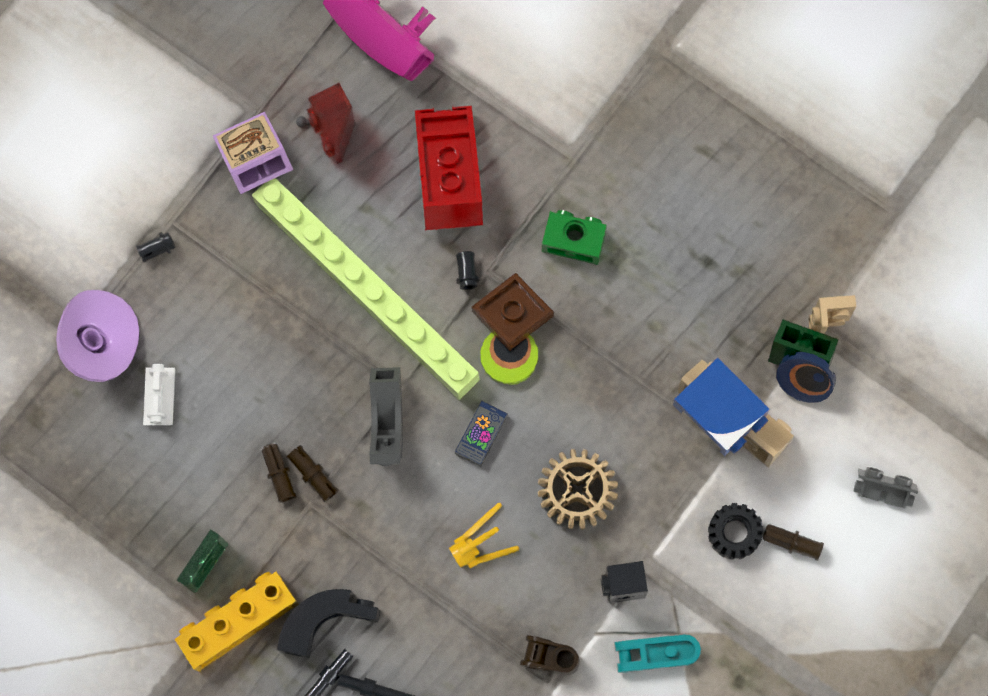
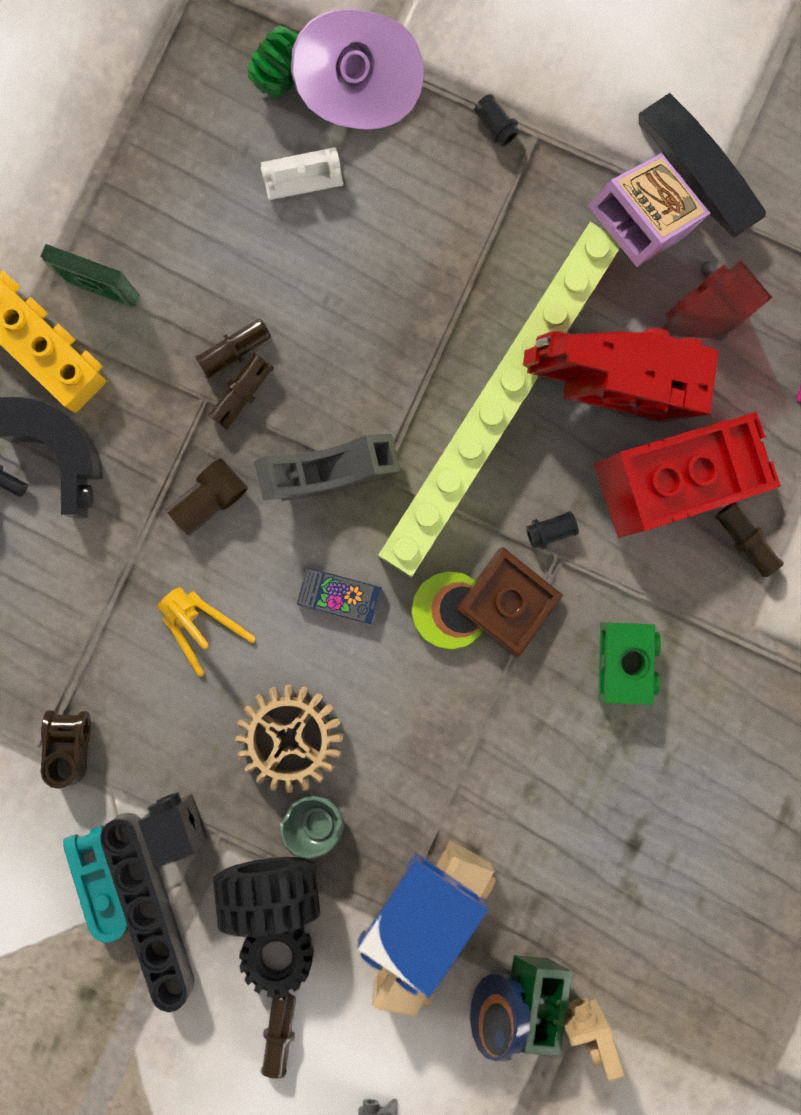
camera: 70 degrees right, 10 degrees up
(75, 393) = (272, 62): none -> green gear
(226, 110) = (702, 165): none -> black slope
(367, 189) = (629, 371): none -> red piece
(383, 508) = (215, 489): none -> dark brown piece
(504, 135) = (749, 539): none -> dark brown pin
(645, 484) = (312, 827): none -> sand green hair
(686, 522) = (266, 896): none -> black tyre
(696, 611) = (142, 929): none -> black beam

